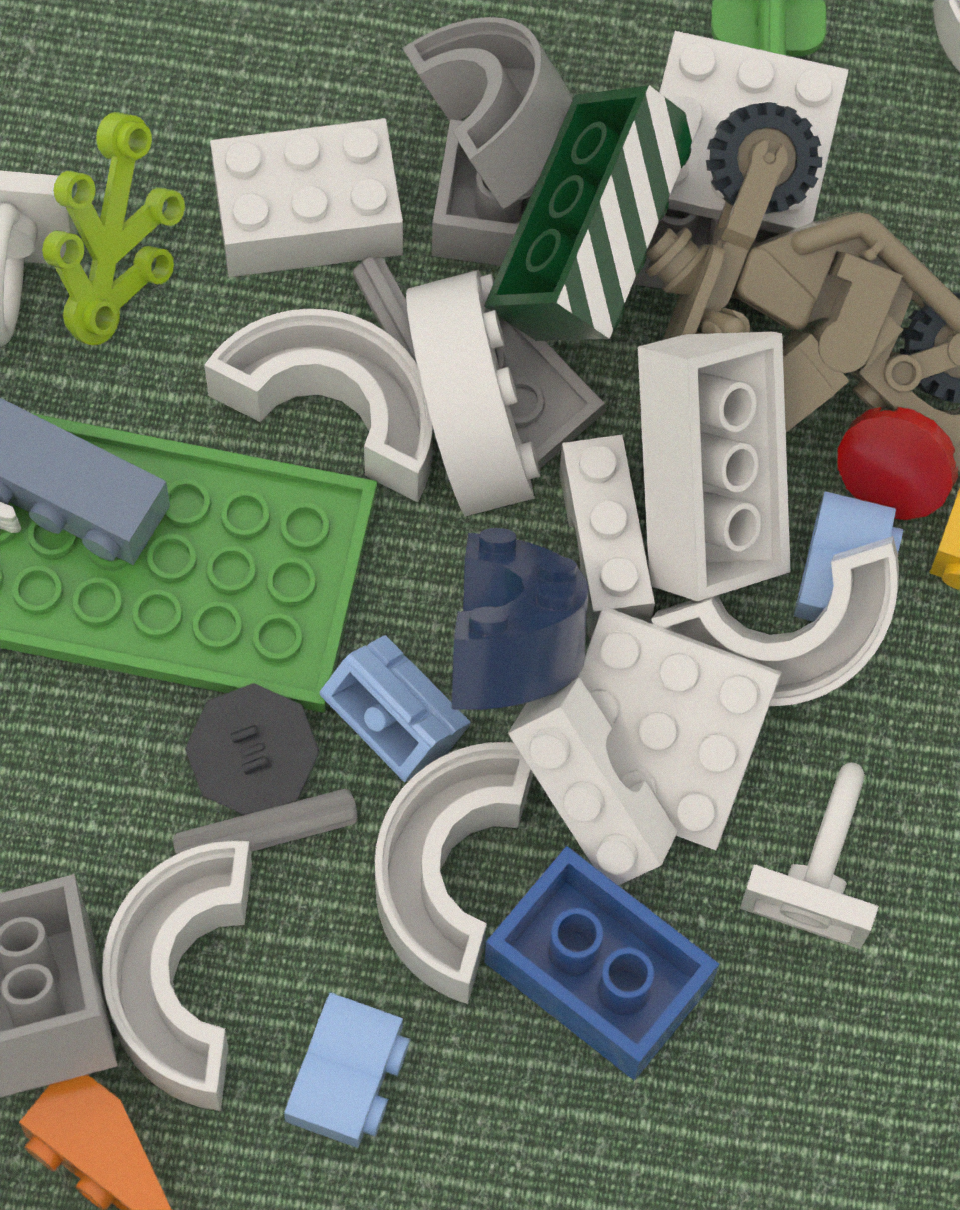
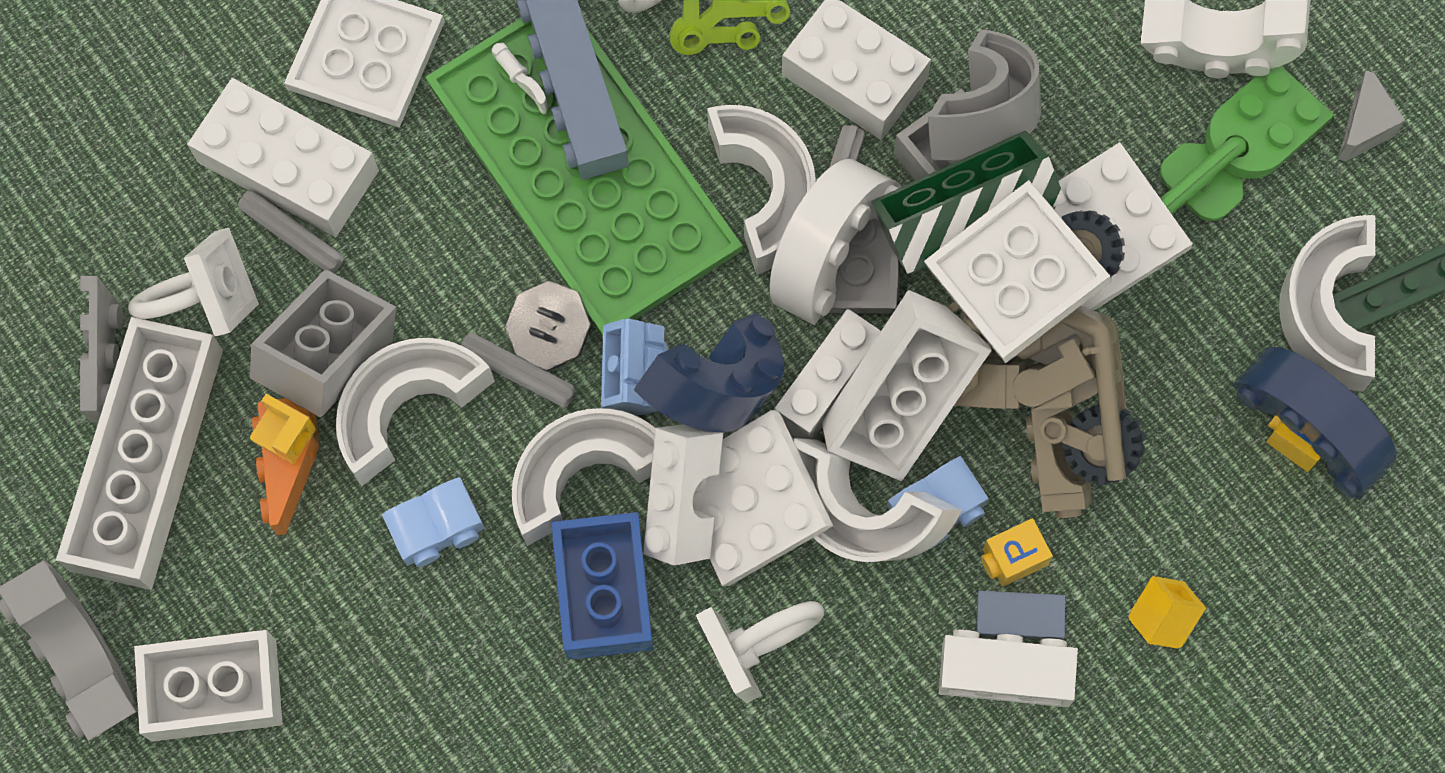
camera: 50 degrees right, 5 degrees up
(83, 1121) = (282, 430): none -> yellow panel
(732, 228) = (1017, 271): none -> white plate
(898, 461) = (1013, 476): red tile -> none

